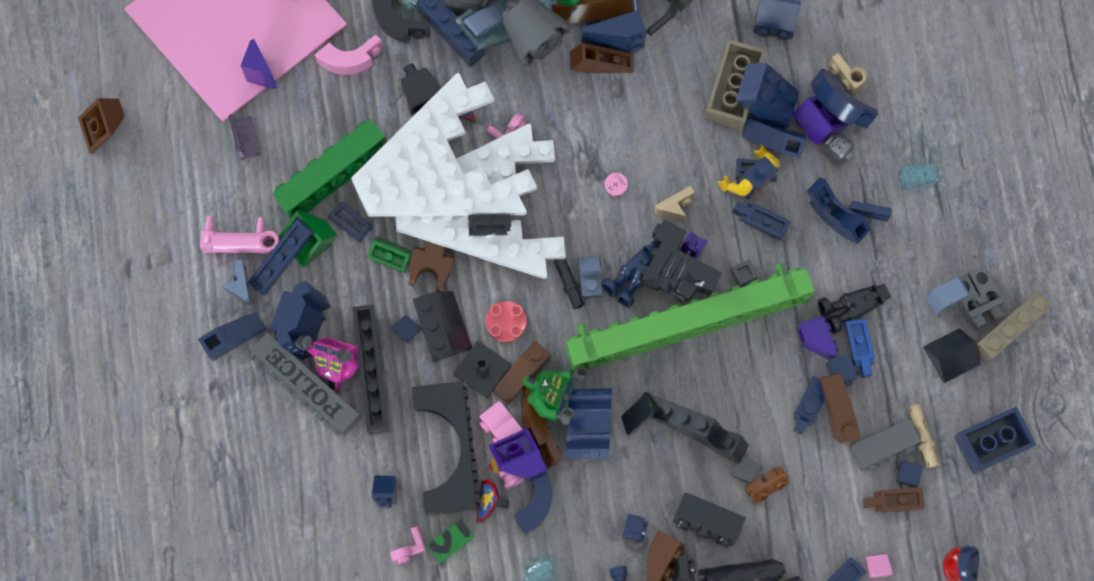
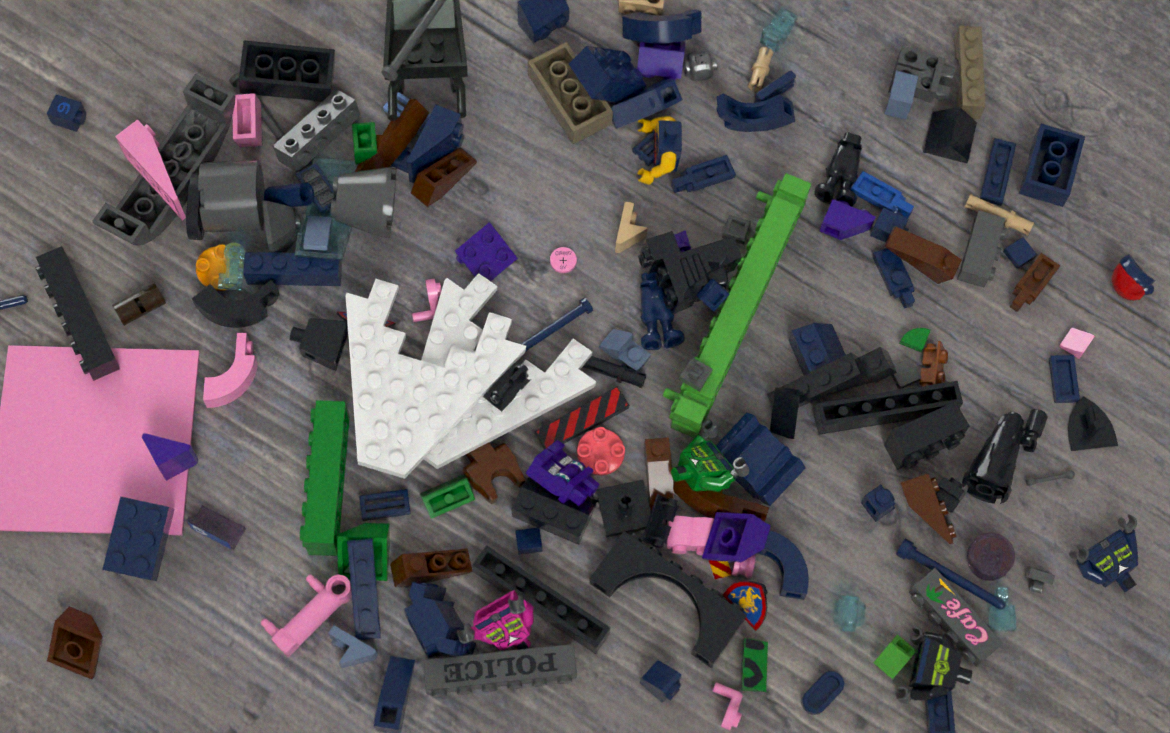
camera: 50 degrees left, 5 degrees down
(193, 98) = (138, 538): none -> dark blue brick
(333, 284) = (430, 566): none -> reddish brown slope
(465, 310) = (562, 475): none -> dark purple hips
(486, 398) = (657, 528): none -> black hinge
(517, 291) = (583, 418): none -> tile
(564, 218) = (584, 306): none -> dark blue bar
(573, 133) = (485, 253): none -> dark purple hinge
(604, 332) = (695, 374): none -> dark grey tile
(671, 296) = (713, 294): none -> dark blue tile
(706, 477) = (884, 407): none -> black brick
(709, 396) = (815, 346): none -> dark blue slope
(777, 456) = (915, 338): none -> green tile
(876, 189) = (760, 69): none -> tan pin
(957, 408) = (998, 171): none -> dark blue tile

